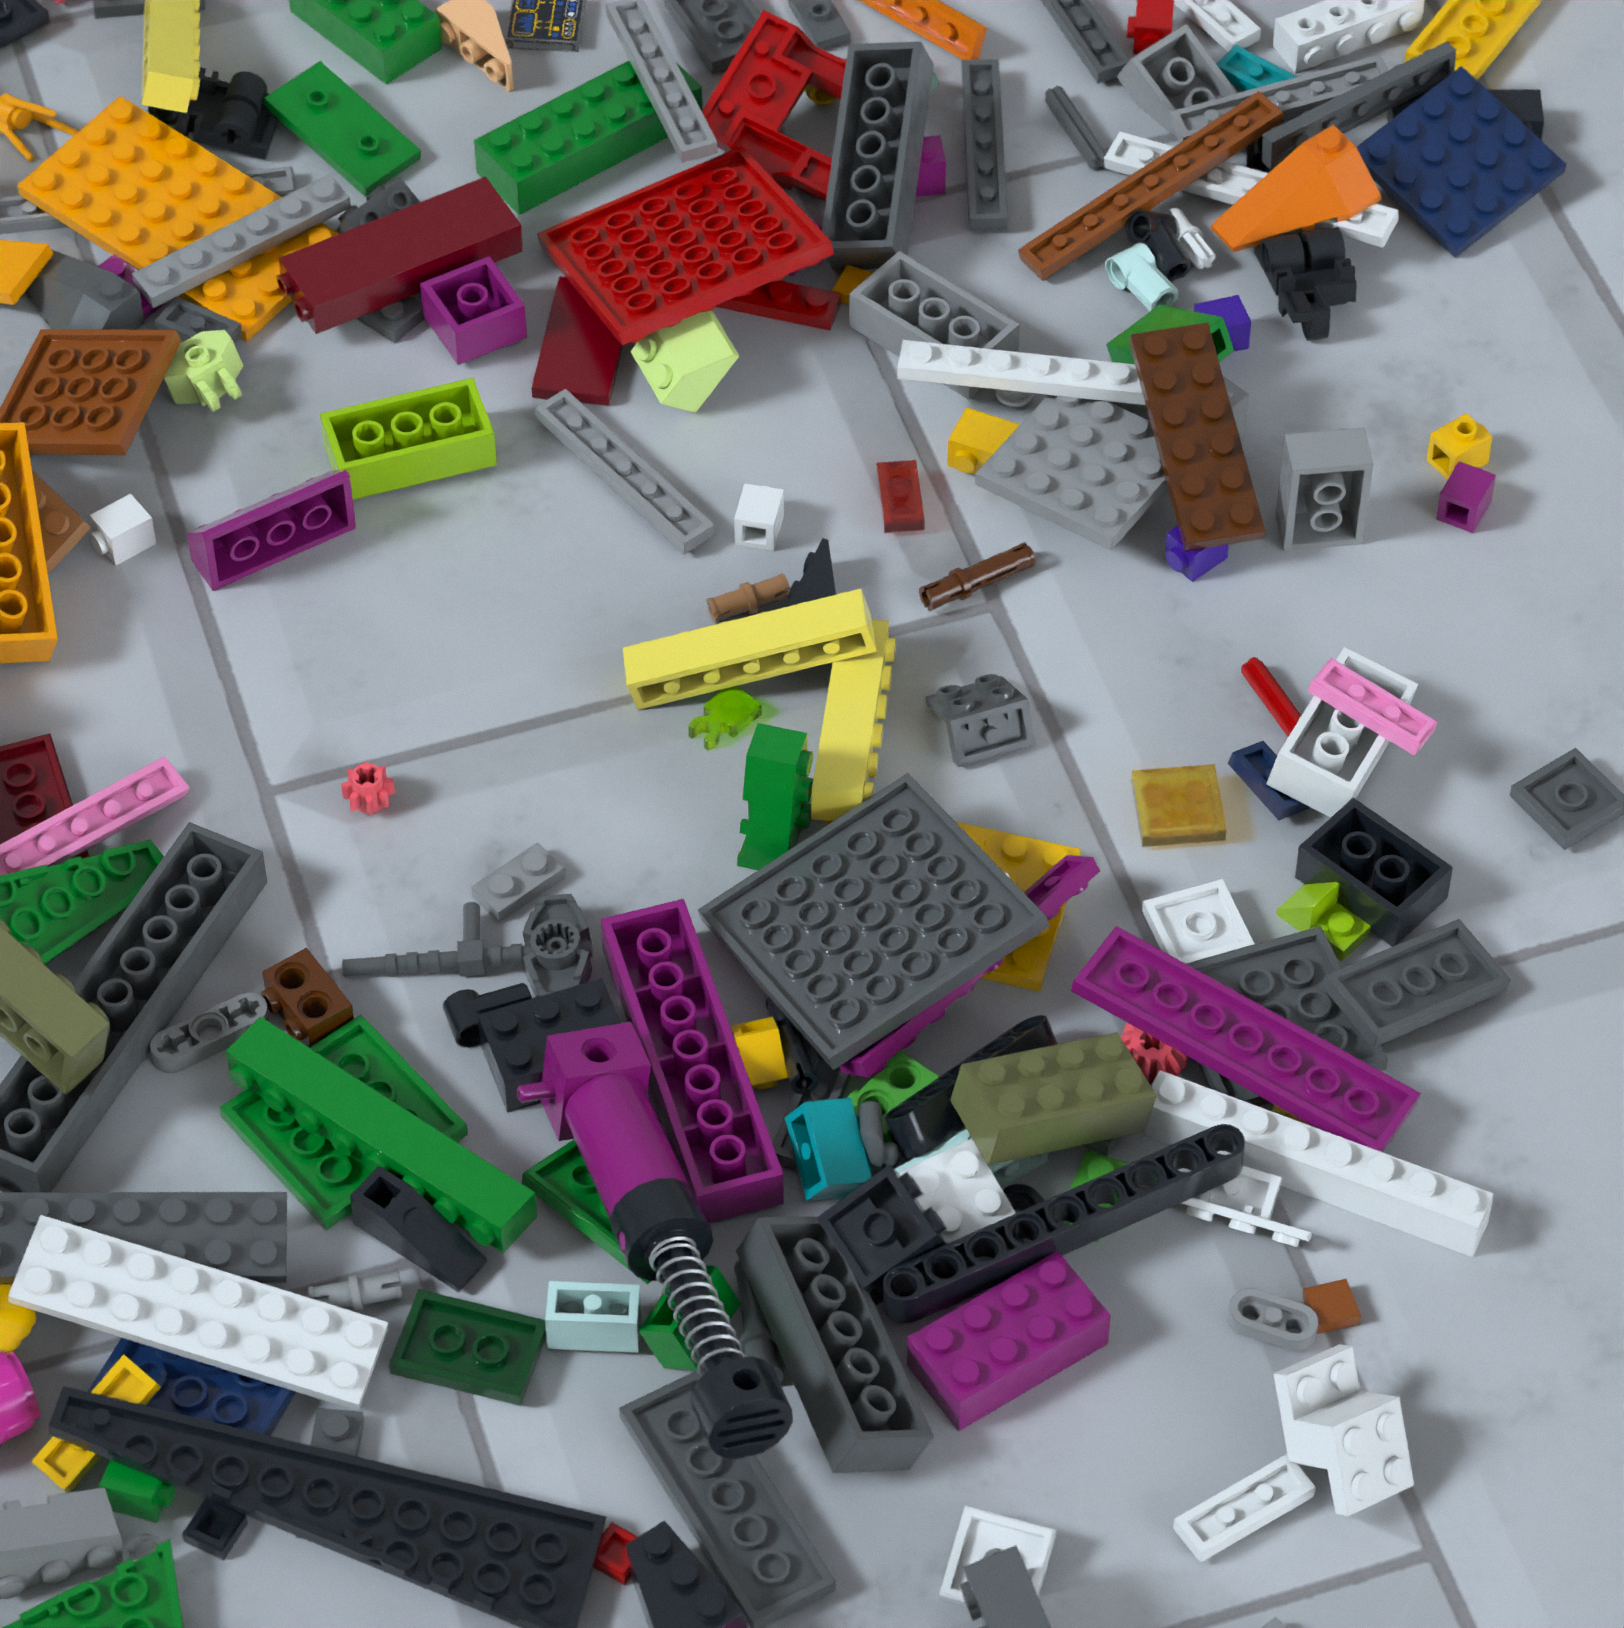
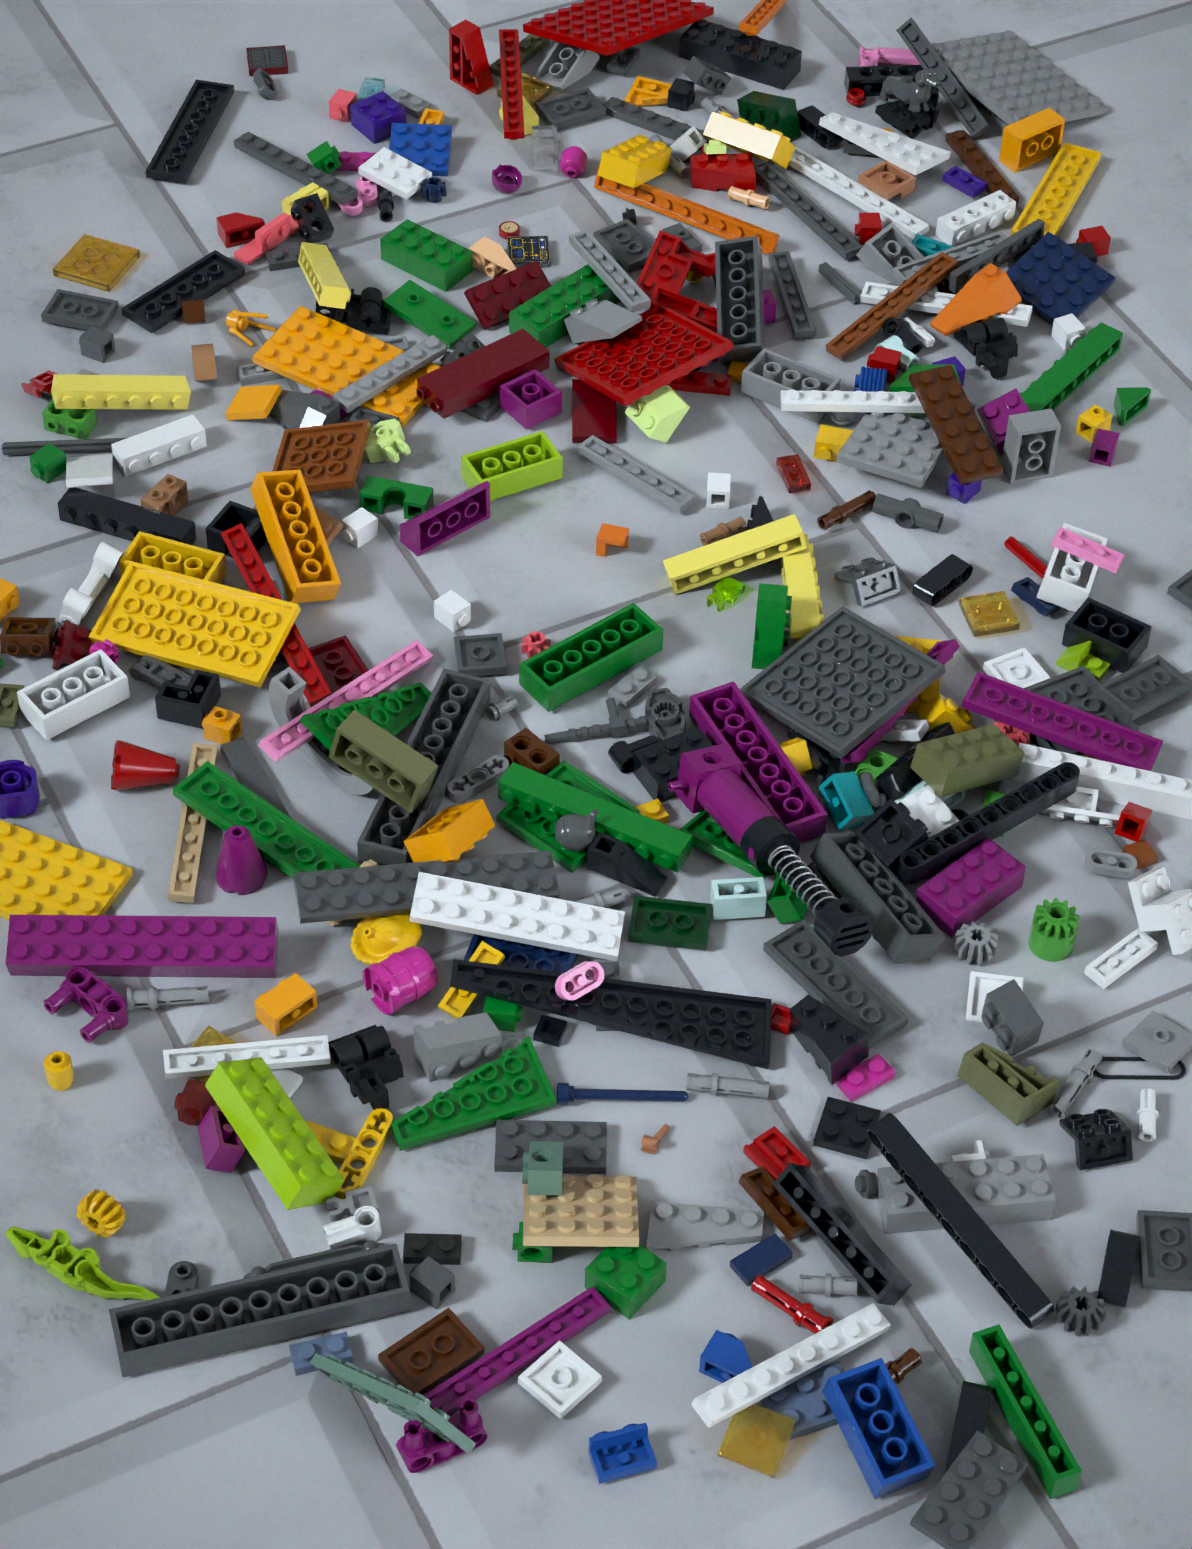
camera: 10 degrees left, 5 degrees down
(121, 1141) = (450, 833): none -> light orange brick
(173, 466) = (380, 492): none -> green arch
(241, 705) = (452, 611): none -> white brick
(266, 1454) = (577, 982): none -> bright pink plate
(269, 795) = (480, 654): none -> dark grey plate
(281, 900) = (497, 710): none -> light grey pin
(337, 1161) = (576, 831): none -> dark grey hair
(454, 821) = (590, 657): none -> green brick
(480, 100) = (502, 294): none -> dark red plate
(492, 1132) = (654, 810): none -> yellow plate
(548, 590) = (613, 536): none -> orange panel
(626, 171) = (599, 321): none -> light grey slope
(971, 1022) = (906, 731): none -> white plate
(992, 1449) = (975, 943): none -> light grey gear
(1048, 993) = (943, 710): none -> yellow slope
(1079, 332) = (871, 380): none -> blue brick
(1082, 593) = (907, 513): none -> dark grey piece
(1111, 731) = (942, 580): none -> black beam
(1112, 296) = (886, 359): none -> red brick
(1132, 1444) = (1053, 930): none -> bright green gear
(1295, 410) = (996, 414): none -> magenta brick
(1330, 1244) = (1133, 821): none -> red brick
(1431, 348) = (1073, 368): none -> green brick
(1459, 262) = (1067, 331): none -> white brick
(1536, 413) = (1130, 403): none -> green slope
(1556, 84) = (1098, 237): none -> red brick

